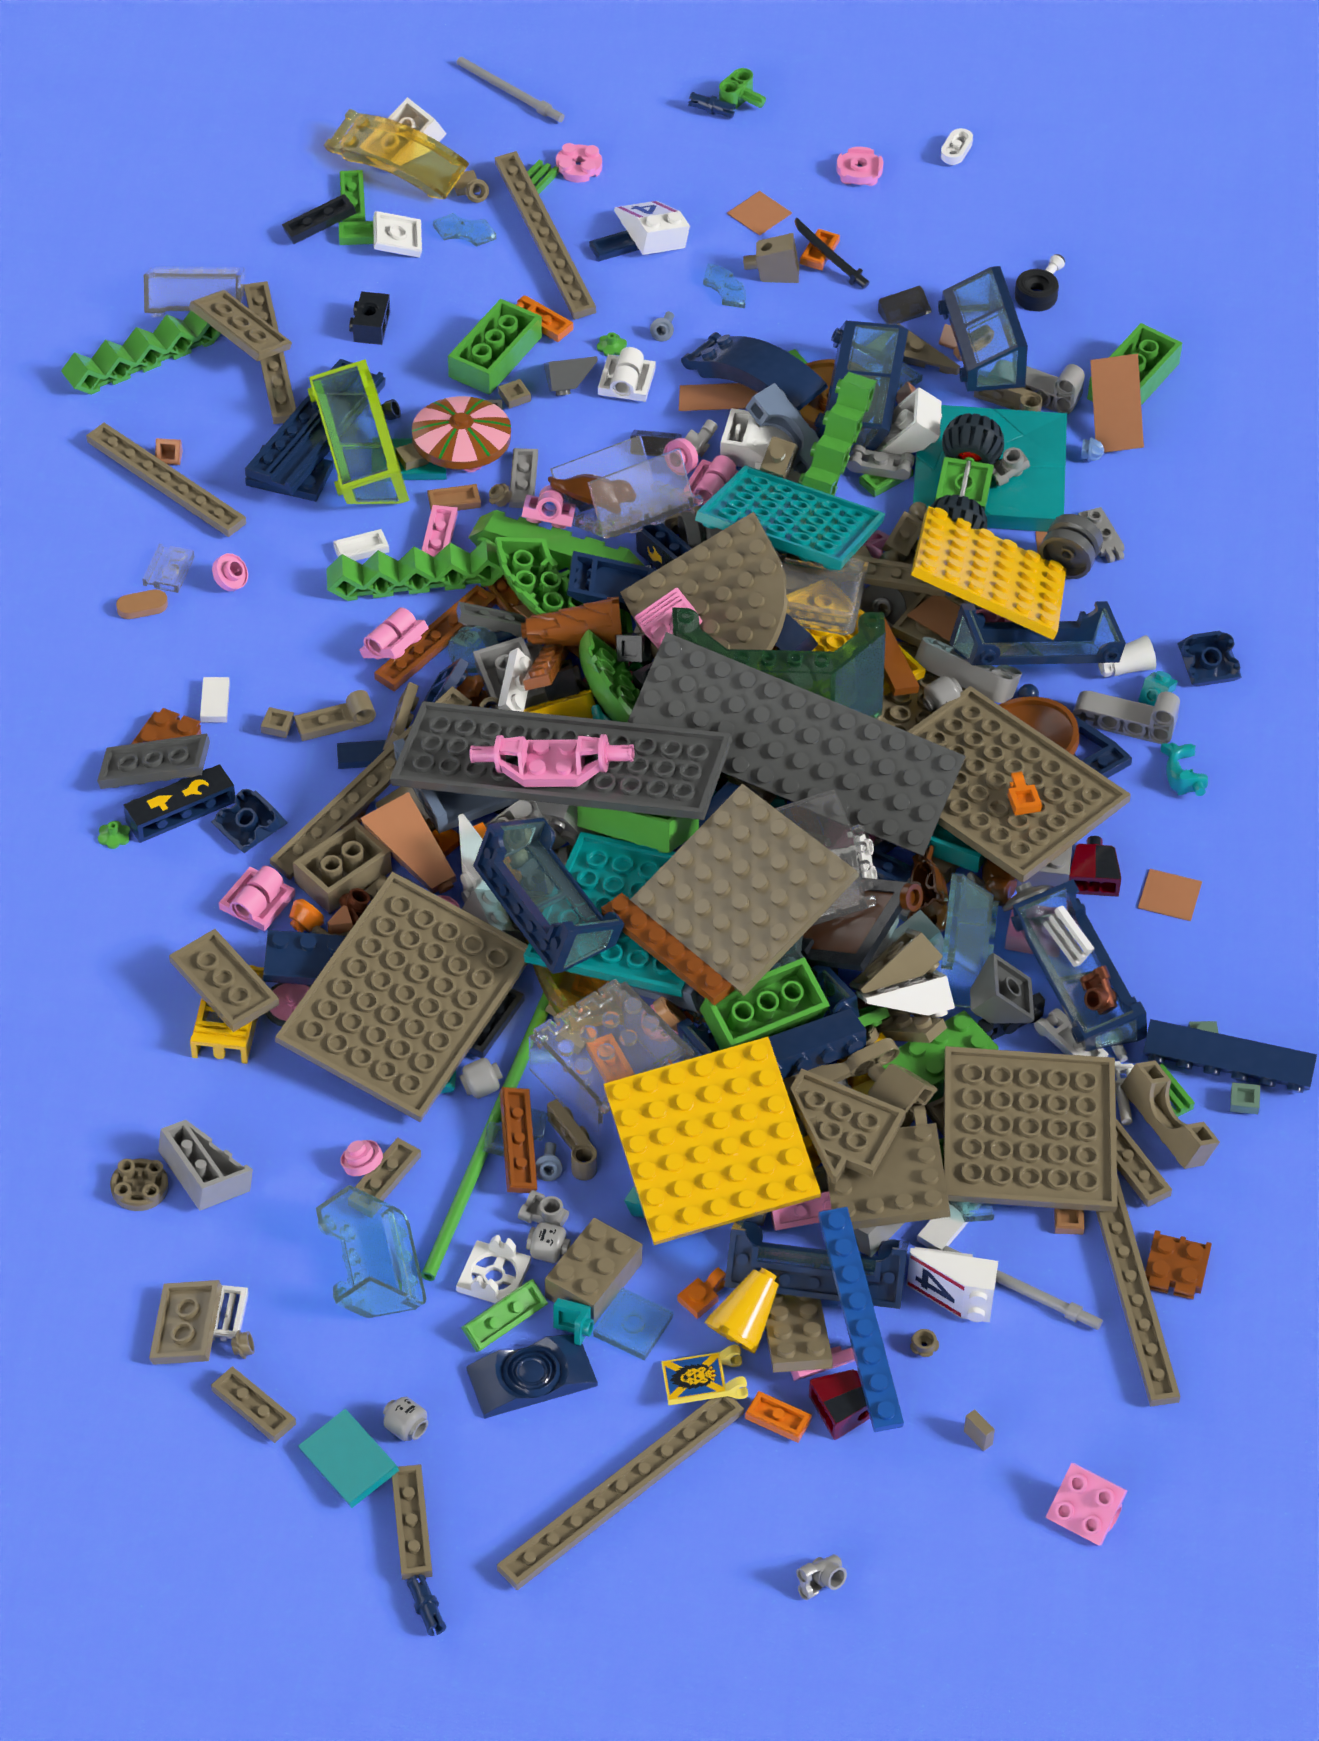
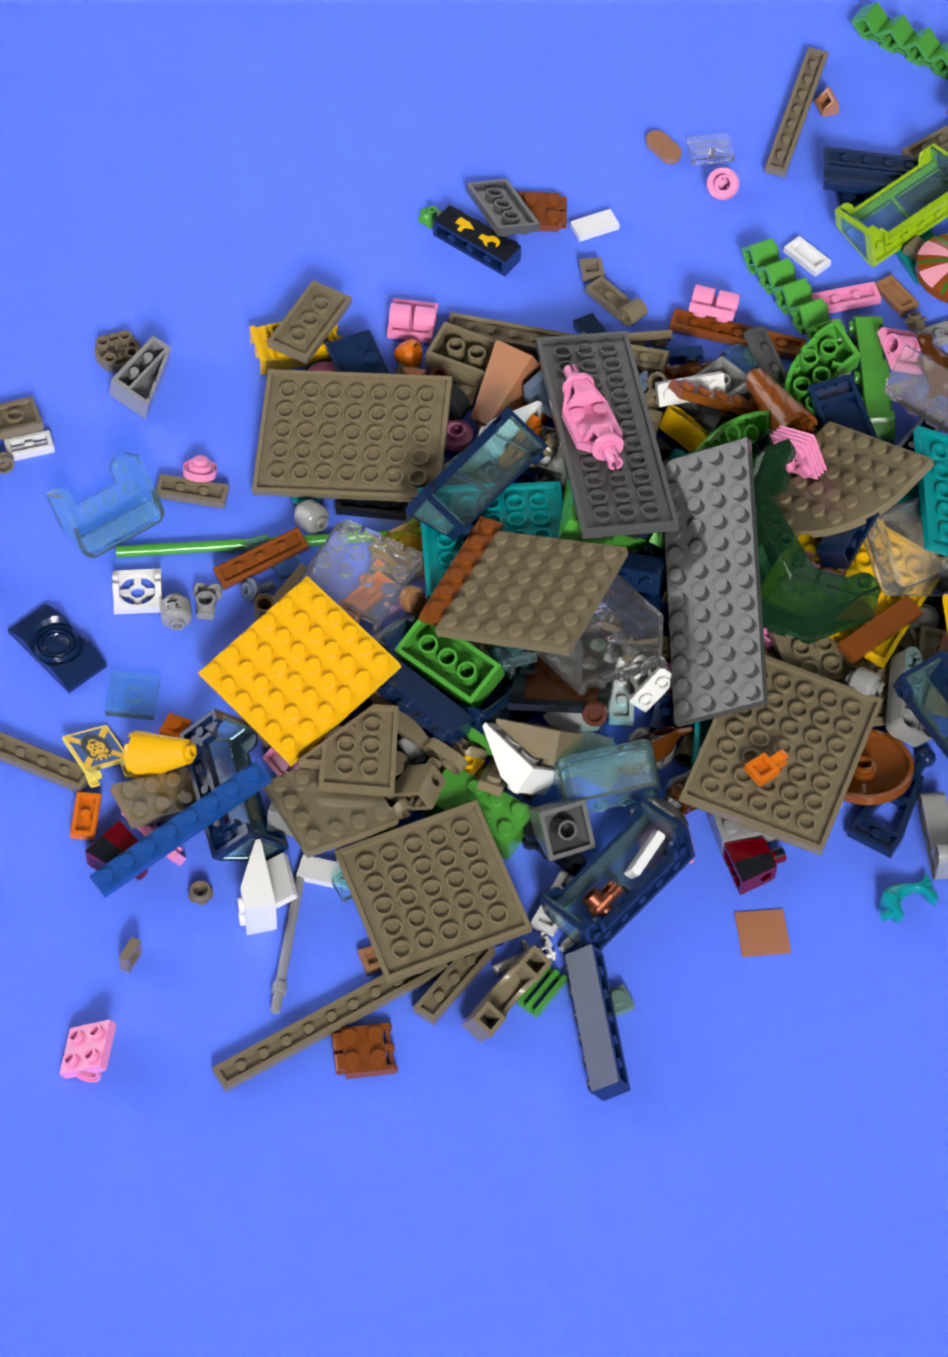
camera: 65 degrees right, 5 degrees up
(248, 820) = (486, 288): dark blue slope -> none
(504, 1315) = (99, 609): bright green tile -> none
(573, 1318) = (111, 657): teal bracket -> none
(594, 1268) = (164, 649): dark tan brick -> none
(1245, 1098) = (561, 1050): sand green plate -> none

